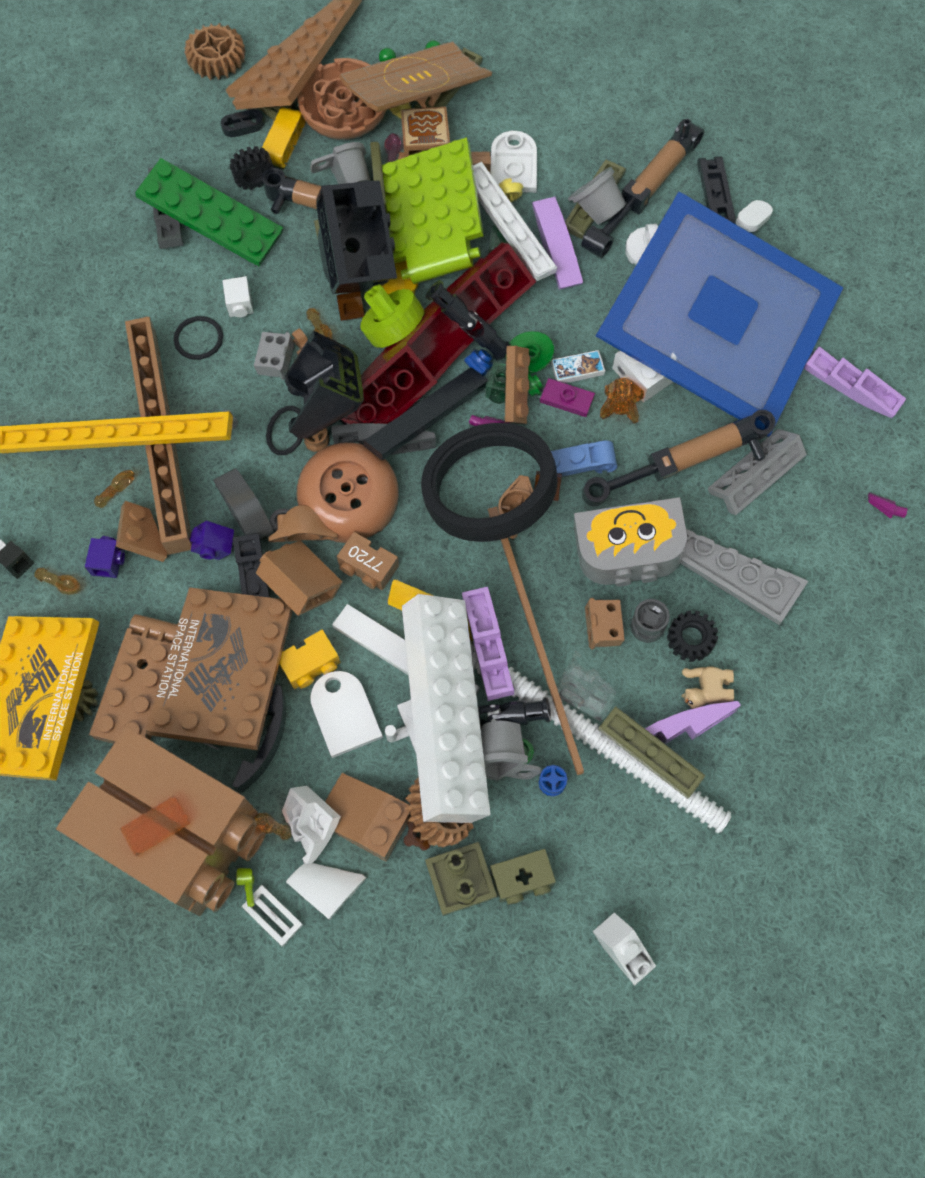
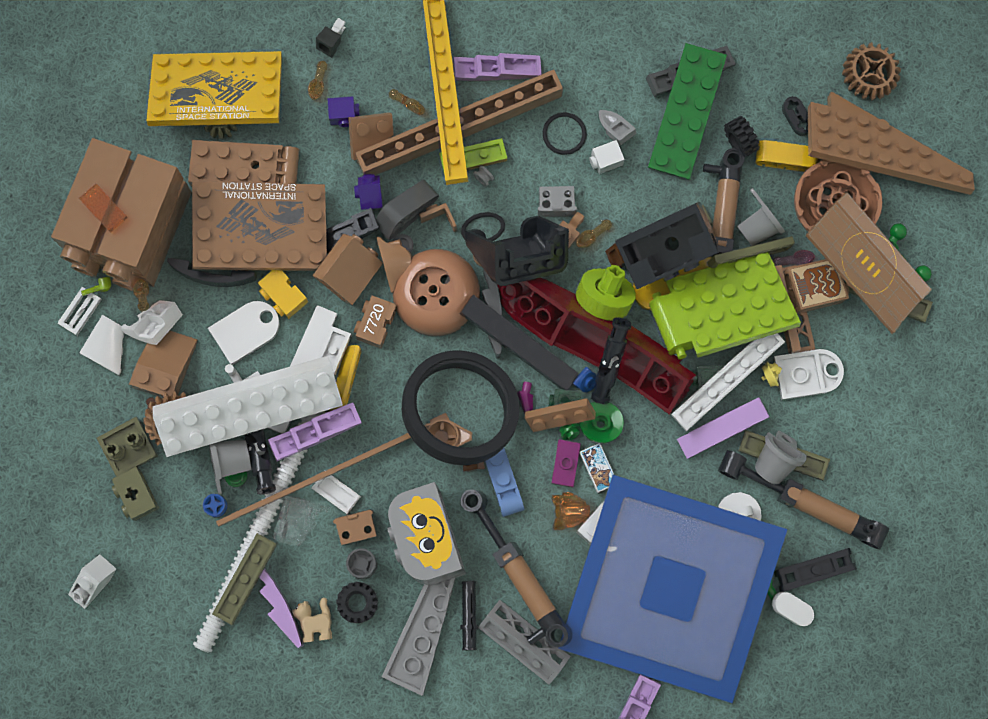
camera: 75 degrees right, 10 degrees up
(104, 383) = (496, 67): none -> lavender slope
(199, 452) = (483, 154): none -> lime plate
(206, 283) = (616, 126): none -> light grey plate
(254, 467) = (435, 211): none -> medium nougat bracket
(385, 612) = (335, 346): none -> white plate
(561, 639) = (337, 493): none -> white tile
(731, 522) = (469, 615): none -> black pin

